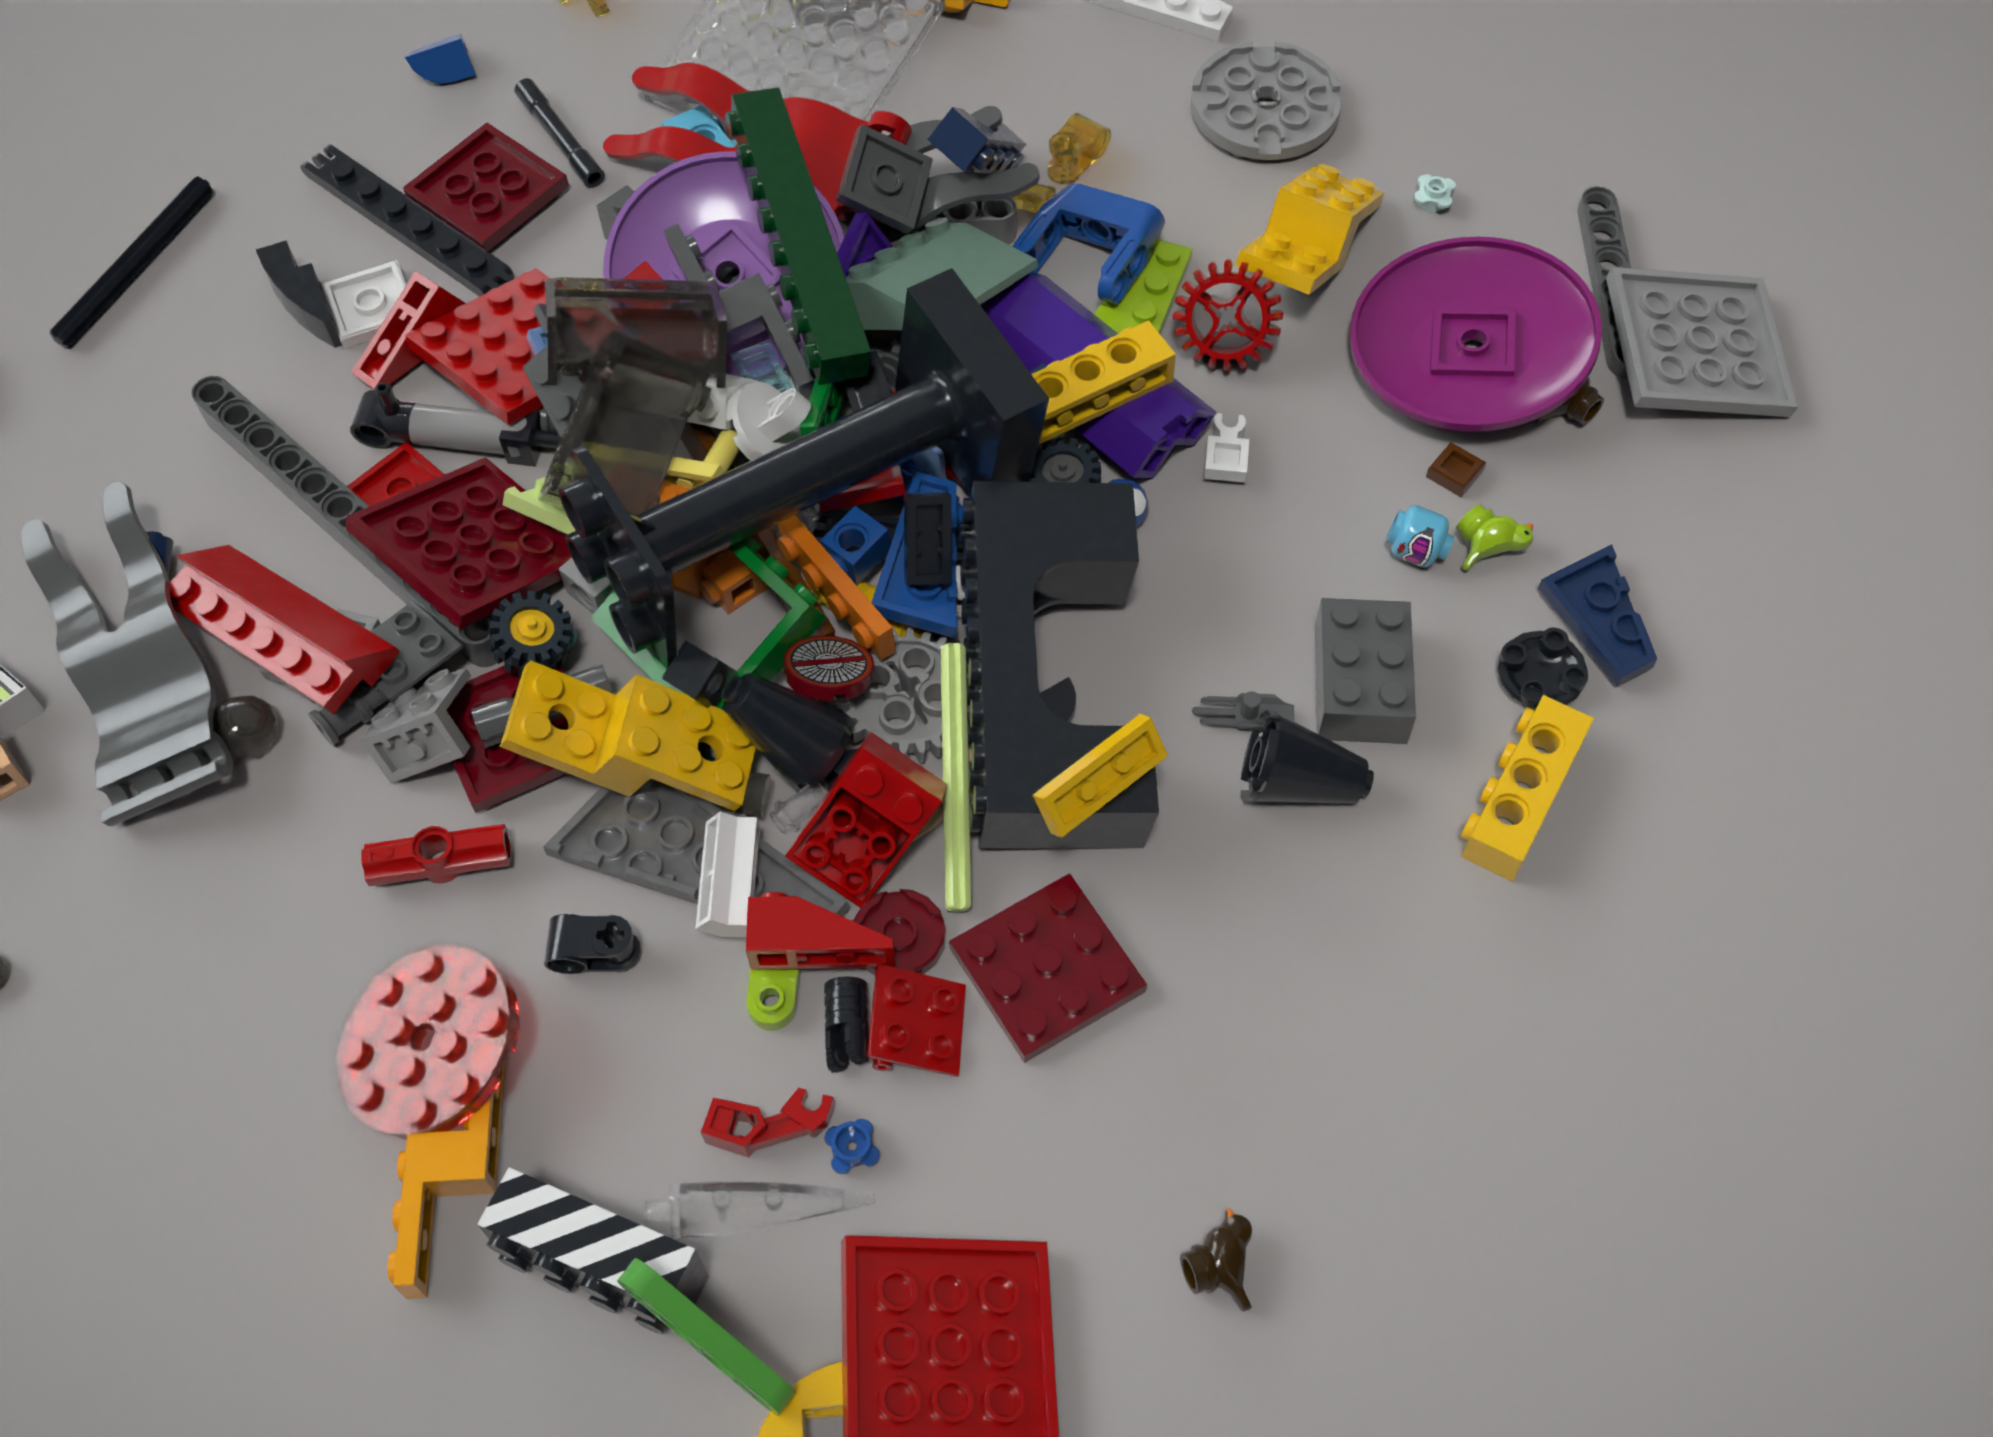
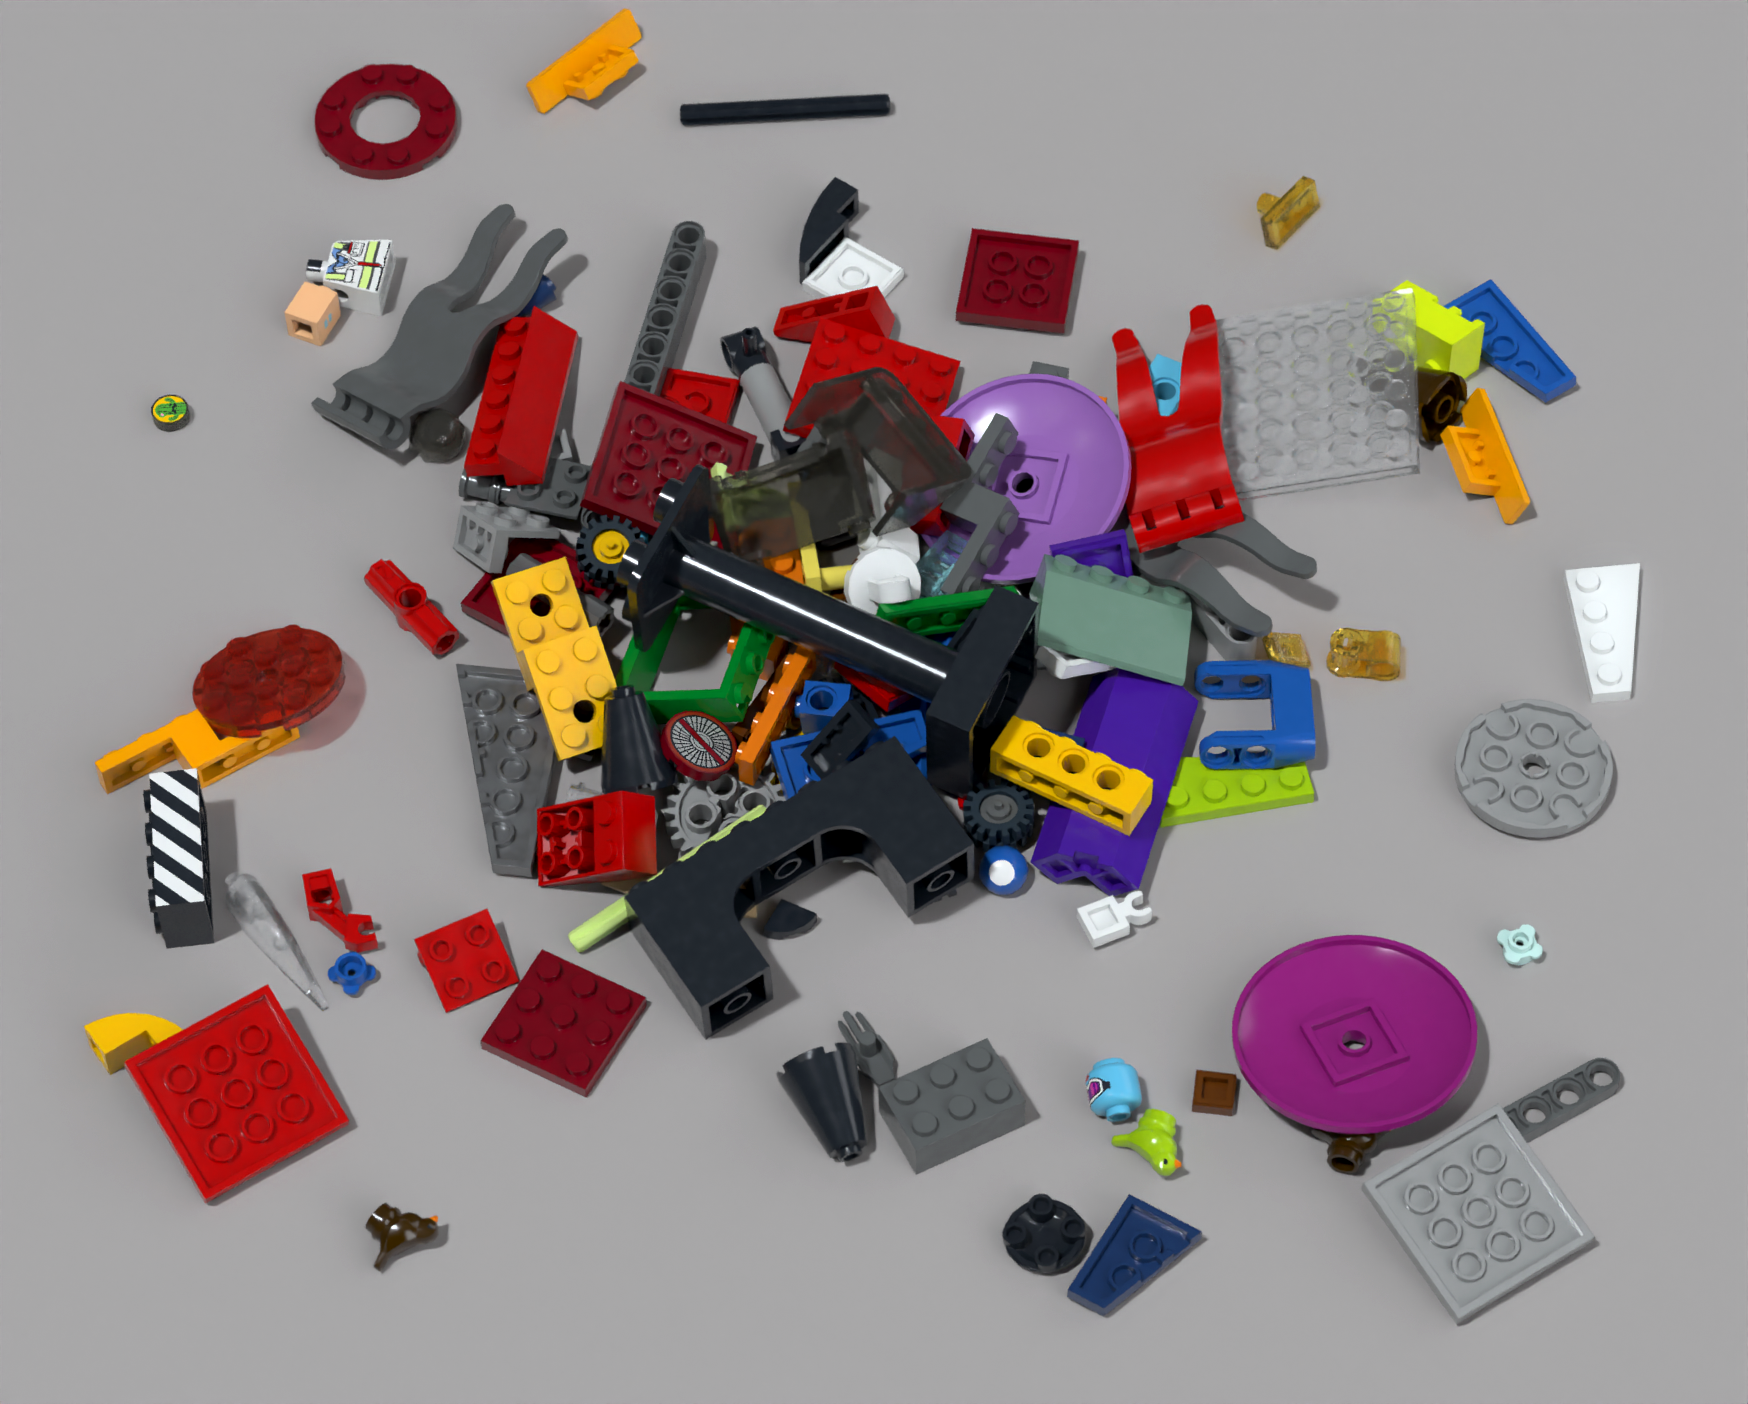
camera: 60 degrees right, 5 degrees down
(407, 221) = (948, 253): black hinge -> none
(442, 61) = (1127, 172): blue brick -> none
(578, 158) = (1095, 322): black piece -> none
(583, 944) = (402, 737): black piece -> none
(698, 674) = (635, 668): black bracket -> none
(706, 1336) = (150, 938): bright green beam -> none
(727, 874) = (499, 784): white piece -> none
(756, 795) = (581, 768): clear smoke tile -> none
(776, 982) = (447, 862): lime plate -> none
(798, 237) = (1058, 497): dark green brick -> none
(802, 935) = (474, 844): red slope -> none
(846, 1022) = (440, 913): black hinge -> none
(884, 179) = (1165, 527): dark grey plate -> none
(911, 923) = (531, 918): dark red tile -> none
(976, 146) = (1244, 563): dark blue arch -> none
(1100, 775) = (694, 947): yellow plate -> none
(1213, 304) = (1237, 845): red gear -> none
(1311, 228) = (1385, 864): yellow bracket -> none
(1503, 846) = (902, 1280): yellow brick -> none

